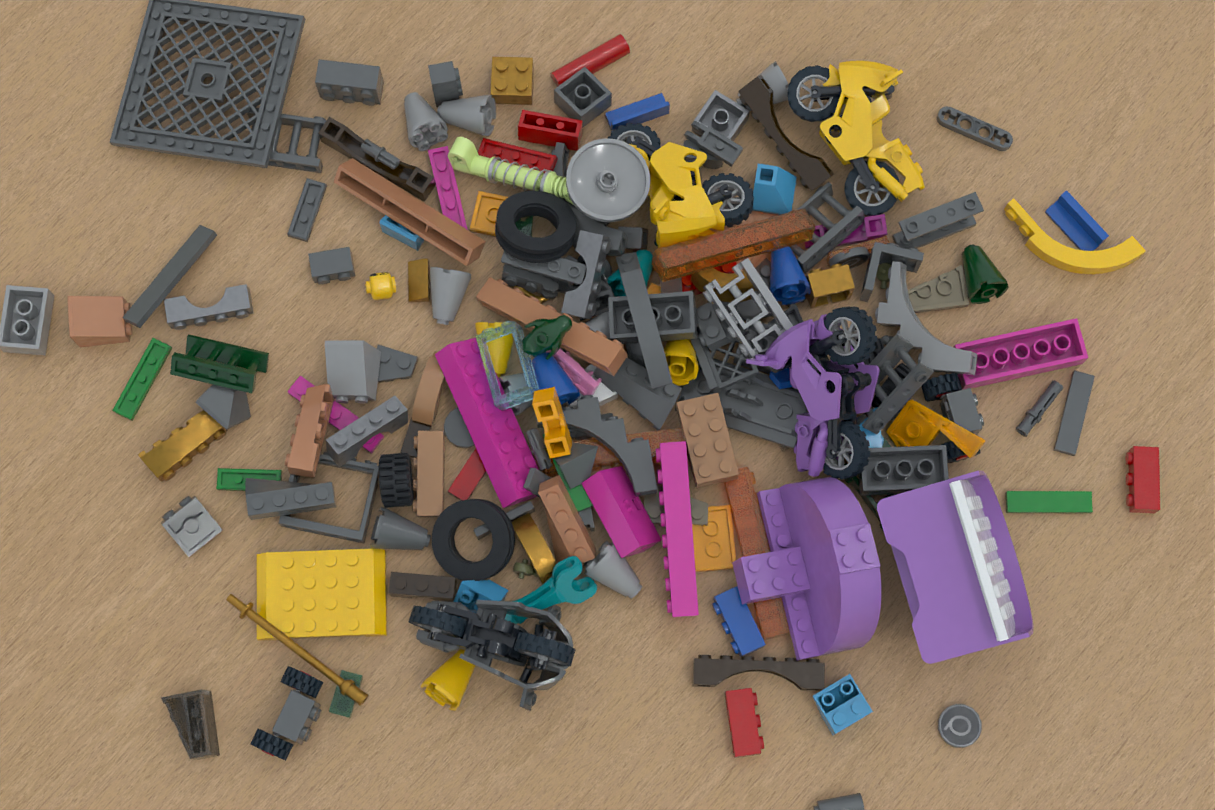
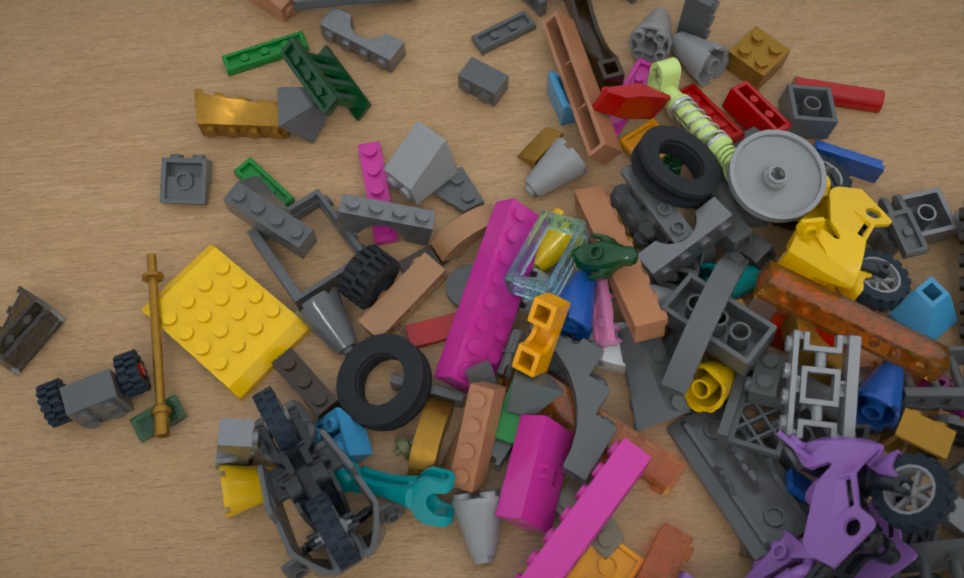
camera: 45 degrees right, 10 degrees down
(310, 431) = (345, 177): nougat wedge -> none
(380, 154) = (597, 29): dark grey axle -> none
(381, 285) = (506, 125): yellow head -> none
(425, 660) = (236, 442): none -> flat silver arch
(458, 198) = (631, 101): none -> red piece
(707, 440) = (674, 479): medium nougat brick -> none

